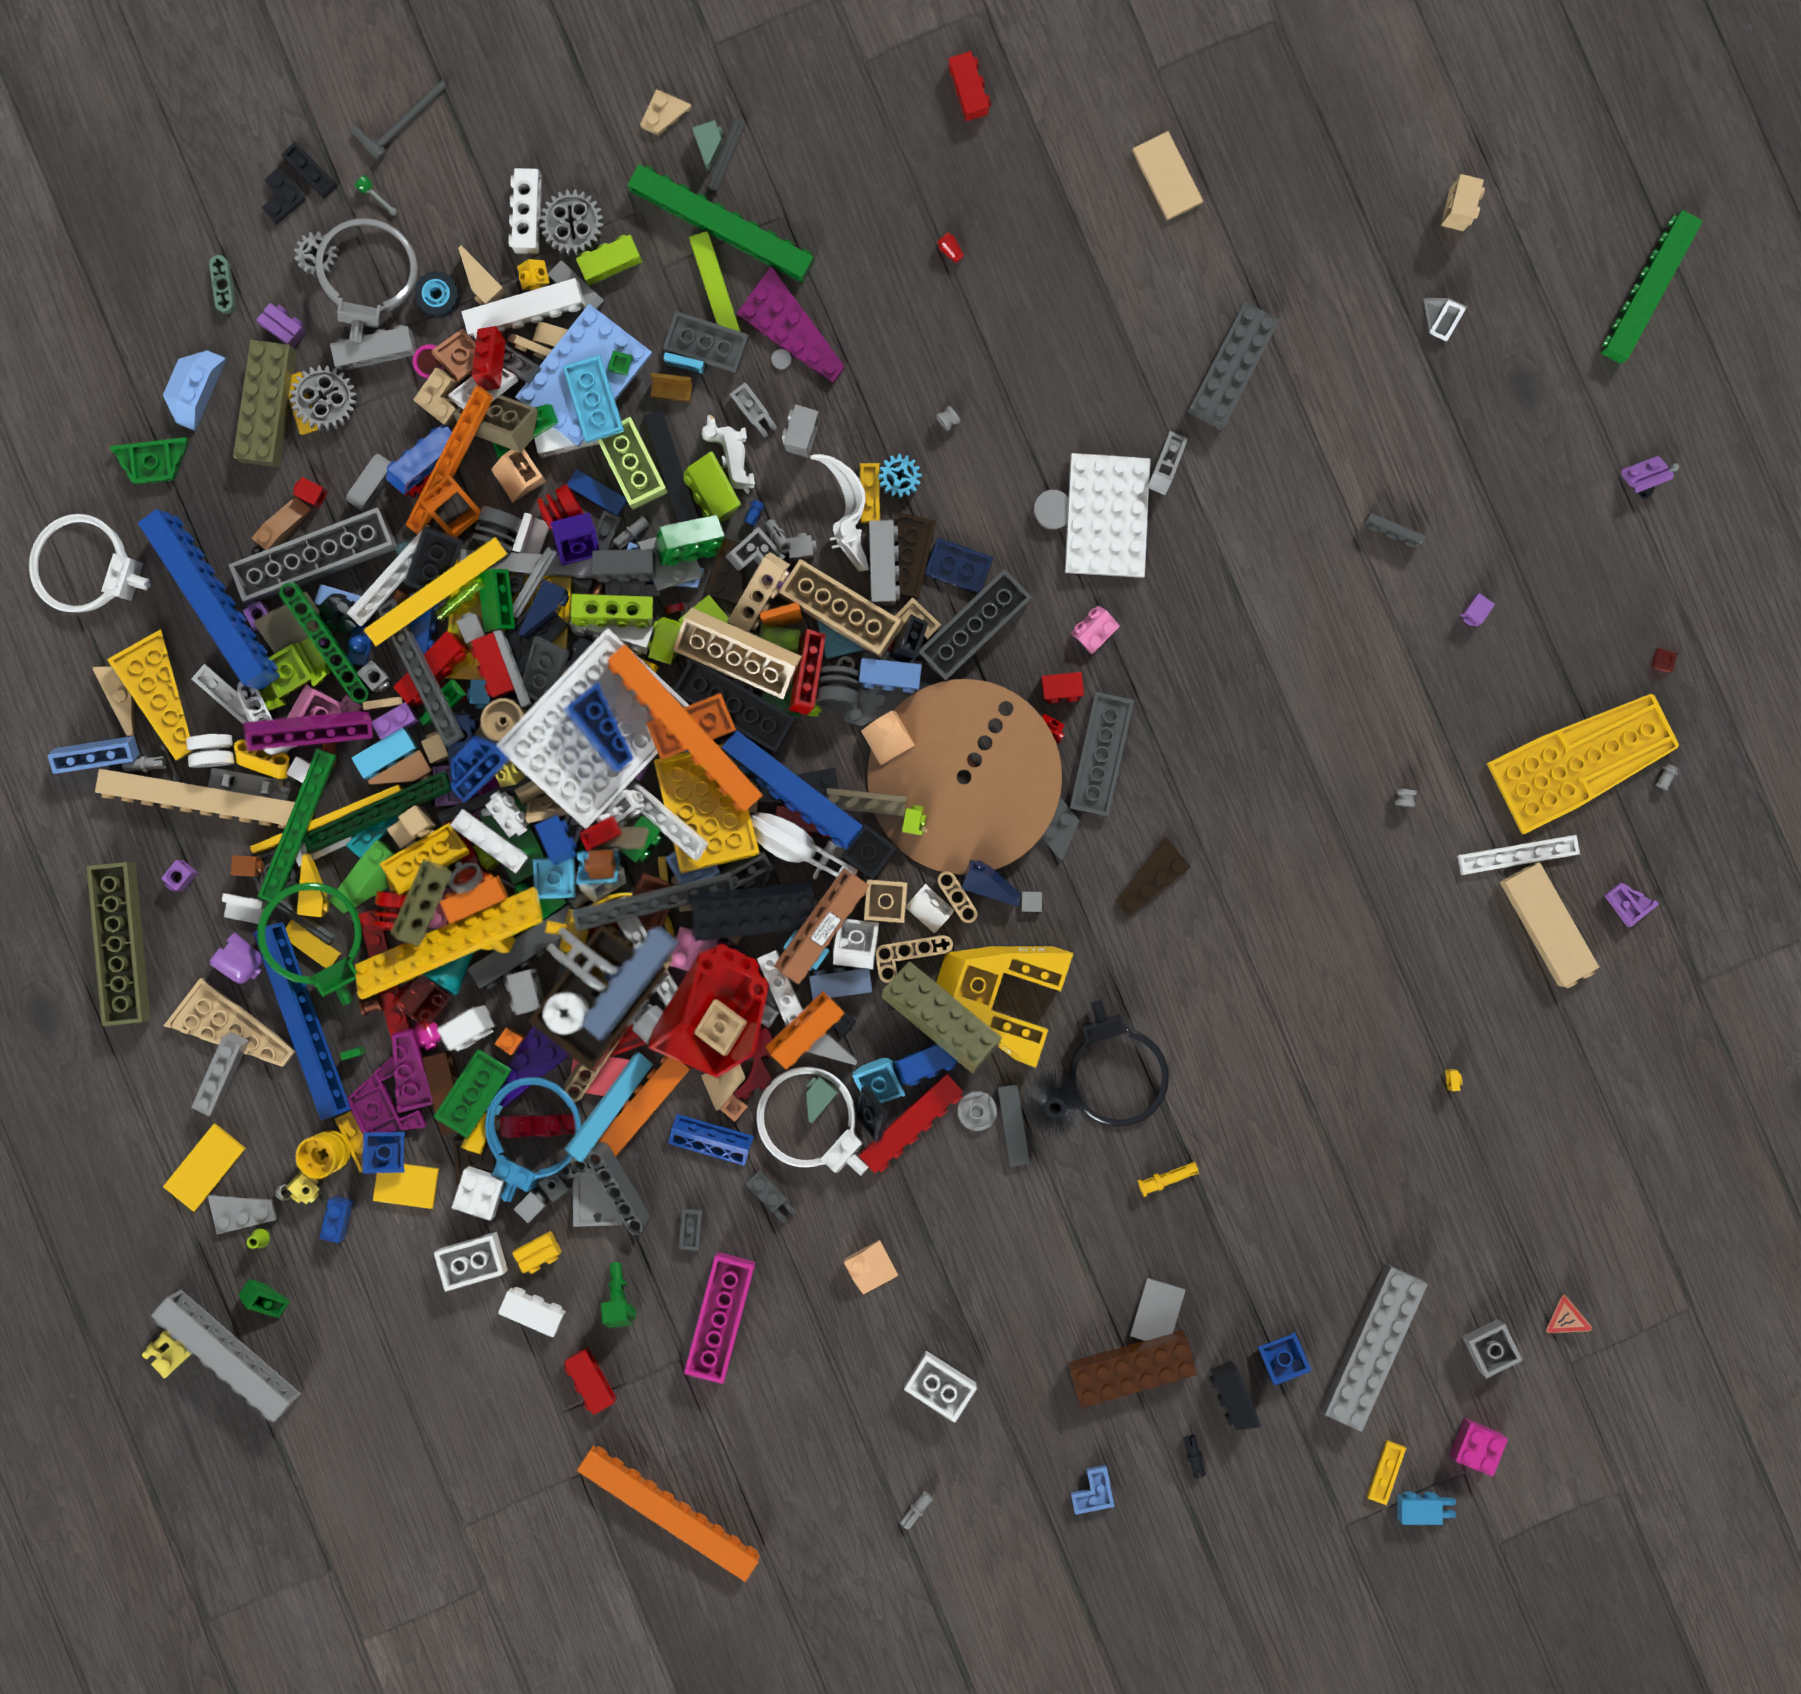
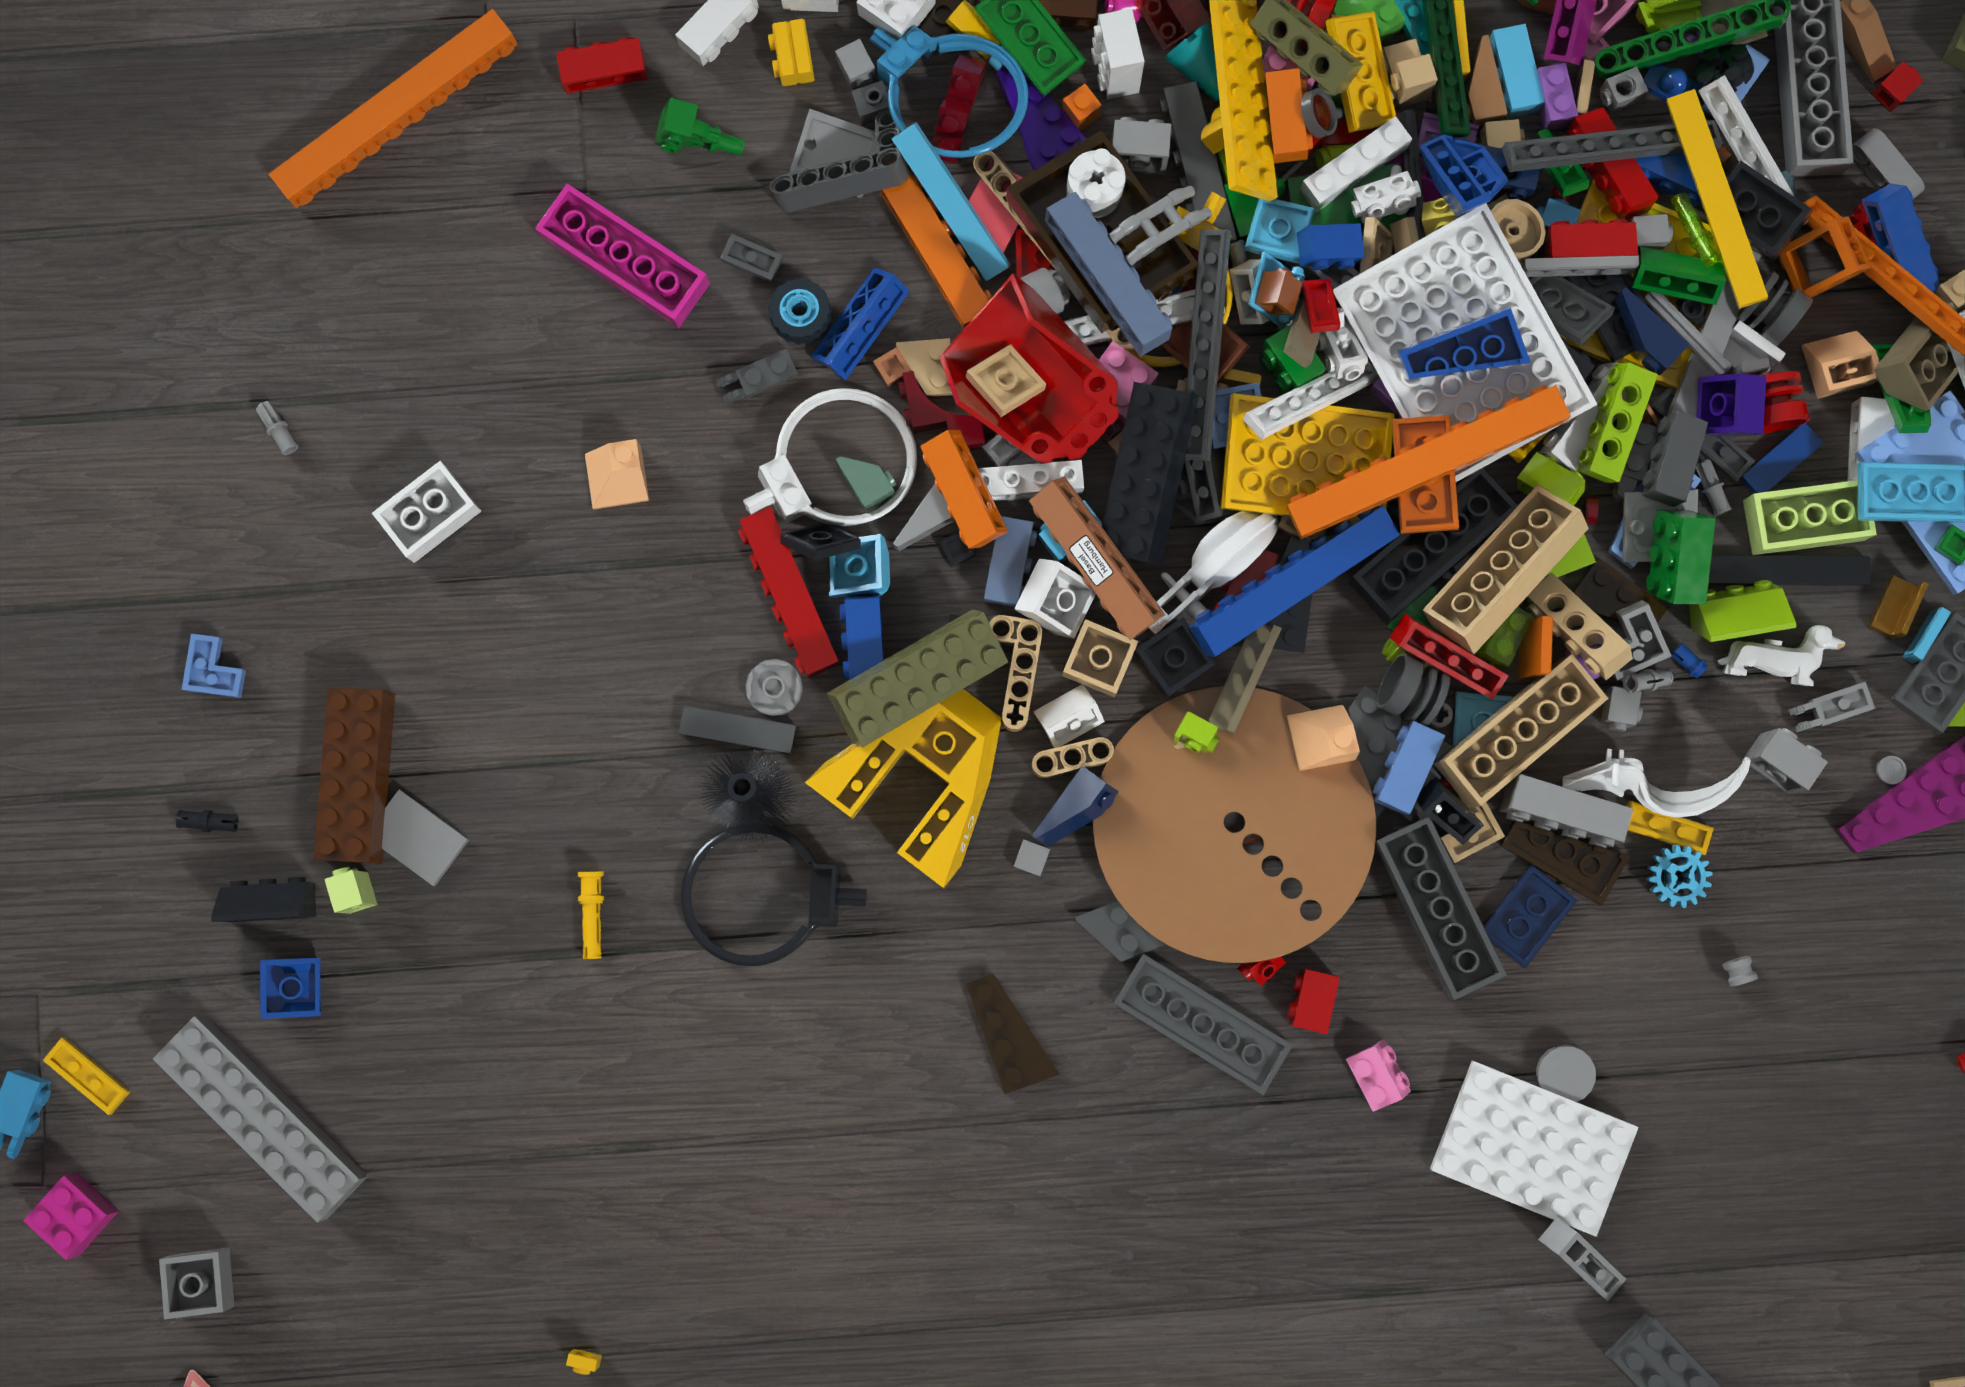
camera: 110 degrees right, 5 degrees down
(544, 535) = (1753, 367): none -> light grey tile
(711, 1194) = (796, 295): none -> black wheel
(1208, 1342) = (350, 890): none -> yellowish green brick

